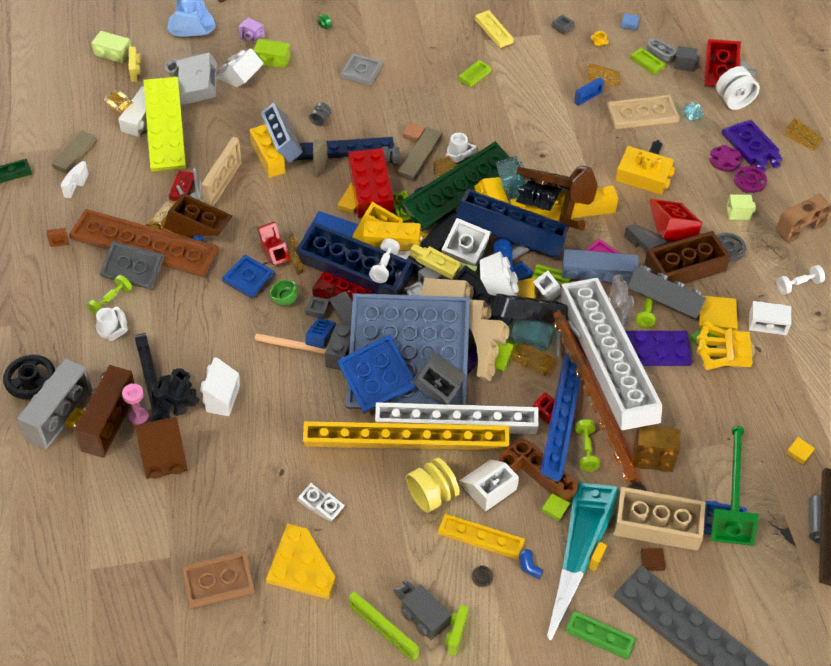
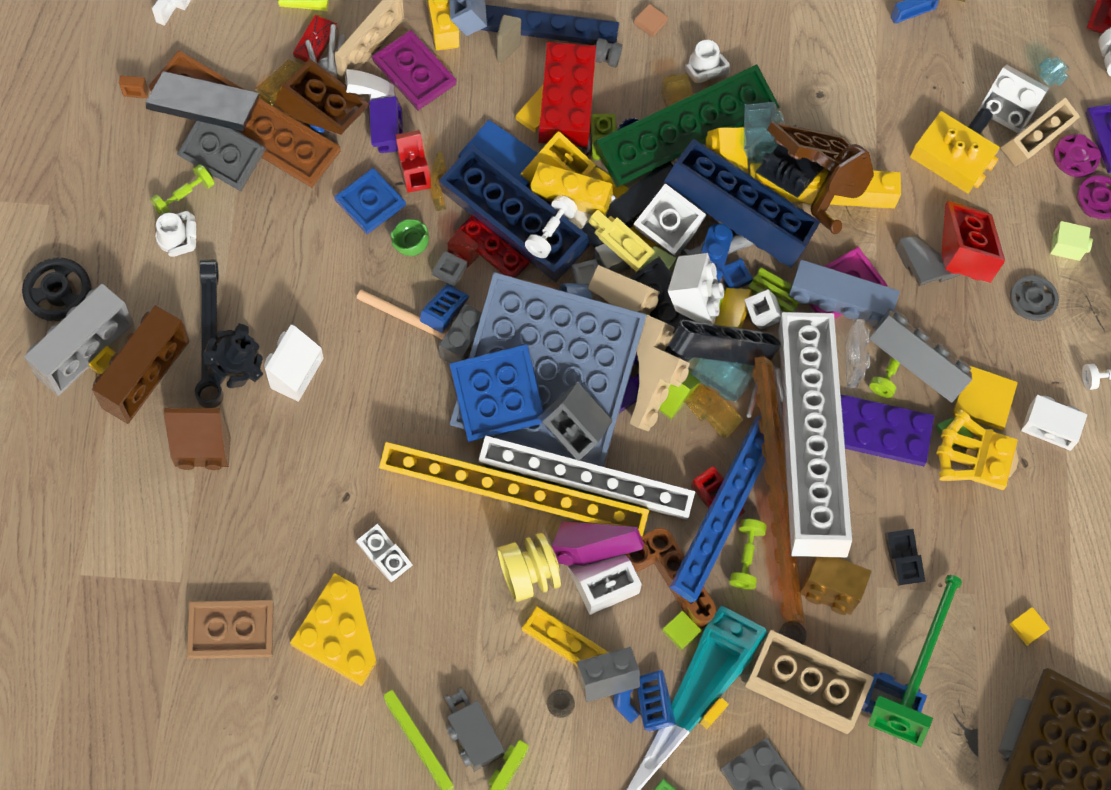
camera: 10 degrees right, 15 degrees up
(111, 234) = (202, 101): none -> tile
(133, 395) = (175, 357): bright pink wheel -> none
(235, 206) = (366, 83): none -> white slope
(246, 226) = (385, 123): none -> dark purple hinge
(258, 190) = (414, 70): none -> magenta plate
(342, 307) = (481, 274): dark grey slope -> none
(420, 153) = (650, 56): dark tan tile -> none
(474, 458) = (591, 543): none -> magenta slope
(513, 543) = (608, 674): none -> dark grey brick
(560, 571) = (646, 712): none -> blue slope
(642, 112) = (981, 52): tan tile -> none
(653, 559) = (785, 732): reddish brown tile -> none
(672, 132) = (1014, 98): none -> white slope
(689, 258) = (968, 309): reddish brown brick -> none
(697, 146) = (1040, 132): none -> tan brick
(697, 425) = (904, 557): none -> black slope

